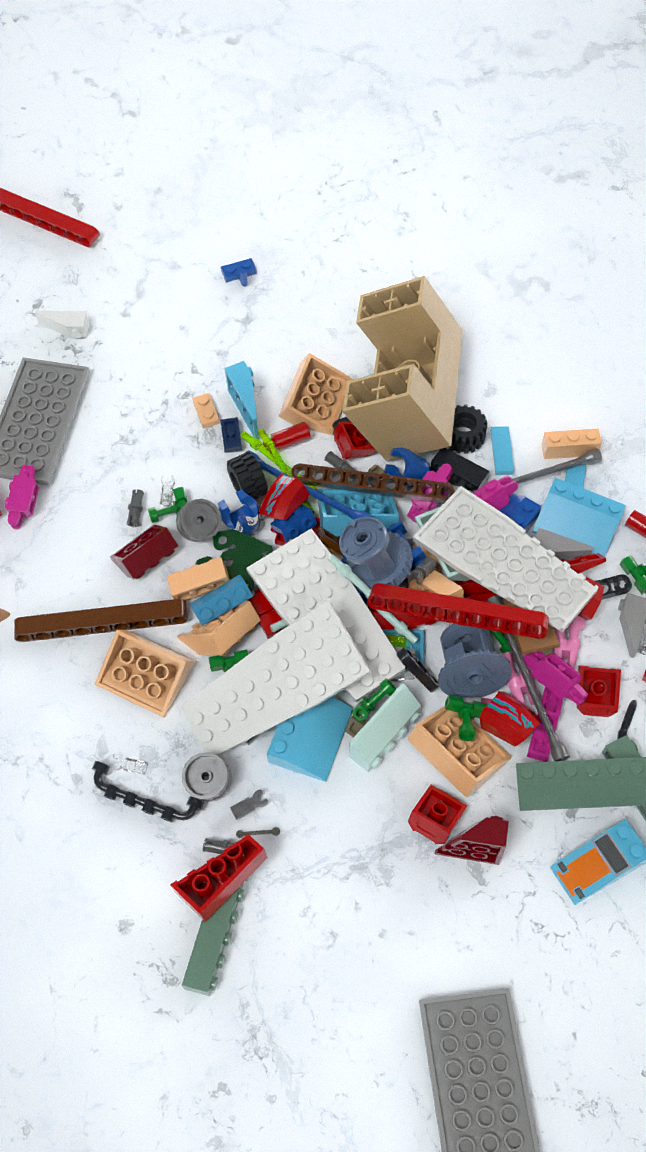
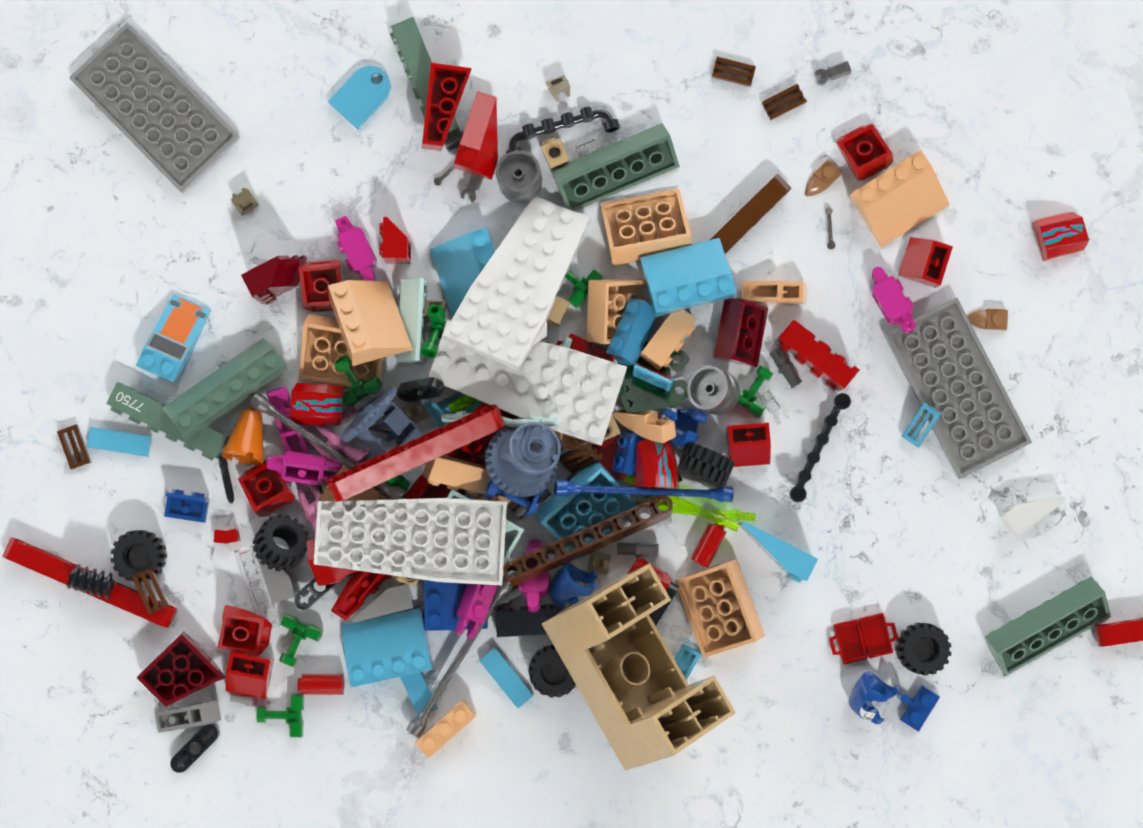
camera: 140 degrees right, 25 degrees up
(26, 567) = (831, 245): none -> clear smoke hinge
(80, 415) = (931, 410): none -> medium azure tile
(95, 561) = (774, 292): none -> light nougat slope
(106, 495) = (816, 356): none -> red wedge
(113, 831) = (558, 85): none -> dark tan tile
(117, 261) = (1048, 625): none -> sand green slope
(118, 454) = (798, 492): none -> black bar
(126, 733) = (615, 167): none -> sand green slope
(146, 604) = (688, 277): none -> medium azure slope
(164, 769) = (554, 144): none -> tan brick
(204, 477) = (749, 444): none -> red slope
(206, 410) = (812, 518): light nougat plate -> none
(214, 289) = (940, 653): none -> black tyre
(218, 829) = (479, 142): none -> red wedge
(231, 434) = (764, 507): dark blue plate -> none
(231, 559) = (653, 376): none -> medium azure slope
(237, 325) = (872, 637): none -> red piece
(264, 525) = (647, 425): none -> light nougat slope
(268, 289) = (869, 689): none -> blue piece
(284, 953) = (360, 97): none -> medium azure tile
(353, 795) = (395, 245): none -> red slope
(386, 821) = (357, 249): none -> dark pink hinge
(420, 745) = (368, 320): none -> light nougat slope
(422, 570) = (477, 477): flat silver bar -> none
(434, 663) = (415, 412): none -> dark tan tile
(455, 935) = (244, 201): none -> dark tan tile
(590, 733) = (246, 439): none -> orange cone
(625, 642) = (270, 552): none -> black tyre

